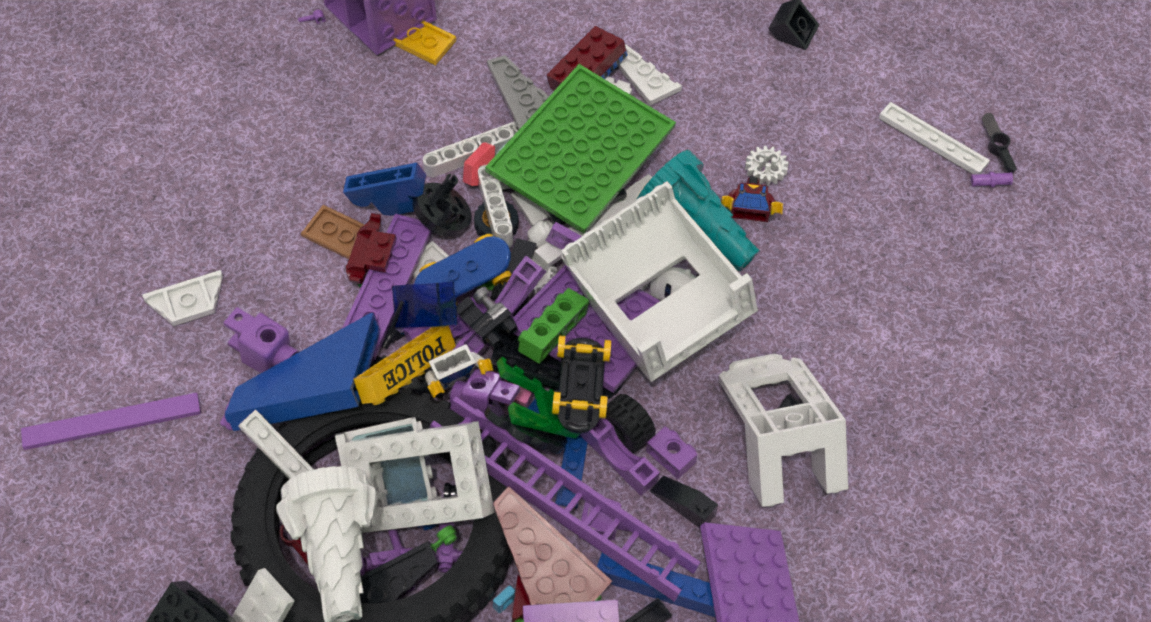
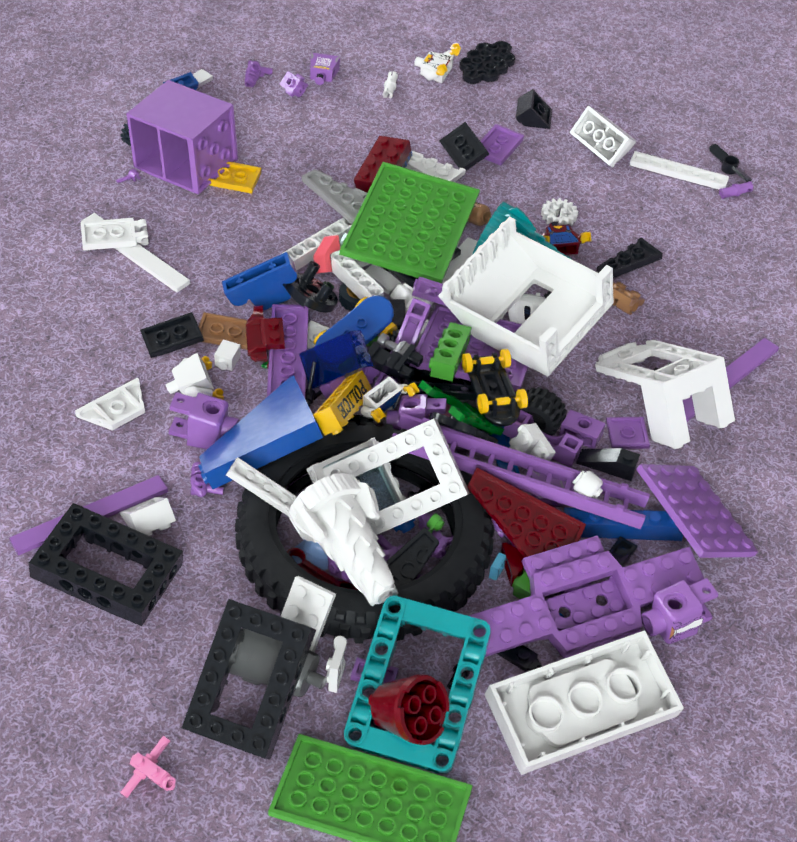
camera: 20 degrees left, 10 degrees down
(109, 541) = (135, 605): none -> black brick
(165, 440) = (149, 515): none -> white slope
(265, 86) = (113, 233): none -> white tile
(276, 285) = (192, 377): none -> white torso
(278, 225) = (171, 335): none -> black tile
(282, 114) = (150, 263): none -> white tile
(324, 265) = (227, 355): none -> white brick
(597, 465) = (532, 442): none -> white plate
(630, 535) = (588, 484): none -> white head
(671, 146) = (480, 214): none -> medium nougat head
(691, 57) = (464, 147): none -> black plate
(723, 468) = (627, 432): none -> medium lavender tile
(734, 59) = (500, 143): none -> medium lavender plate
(791, 291) = (625, 299): none -> medium nougat plate
(830, 243) = (633, 258): none -> black wing
(858, 76) = (602, 136): none -> white windscreen
(886, 420) = (740, 368): none -> medium lavender tile

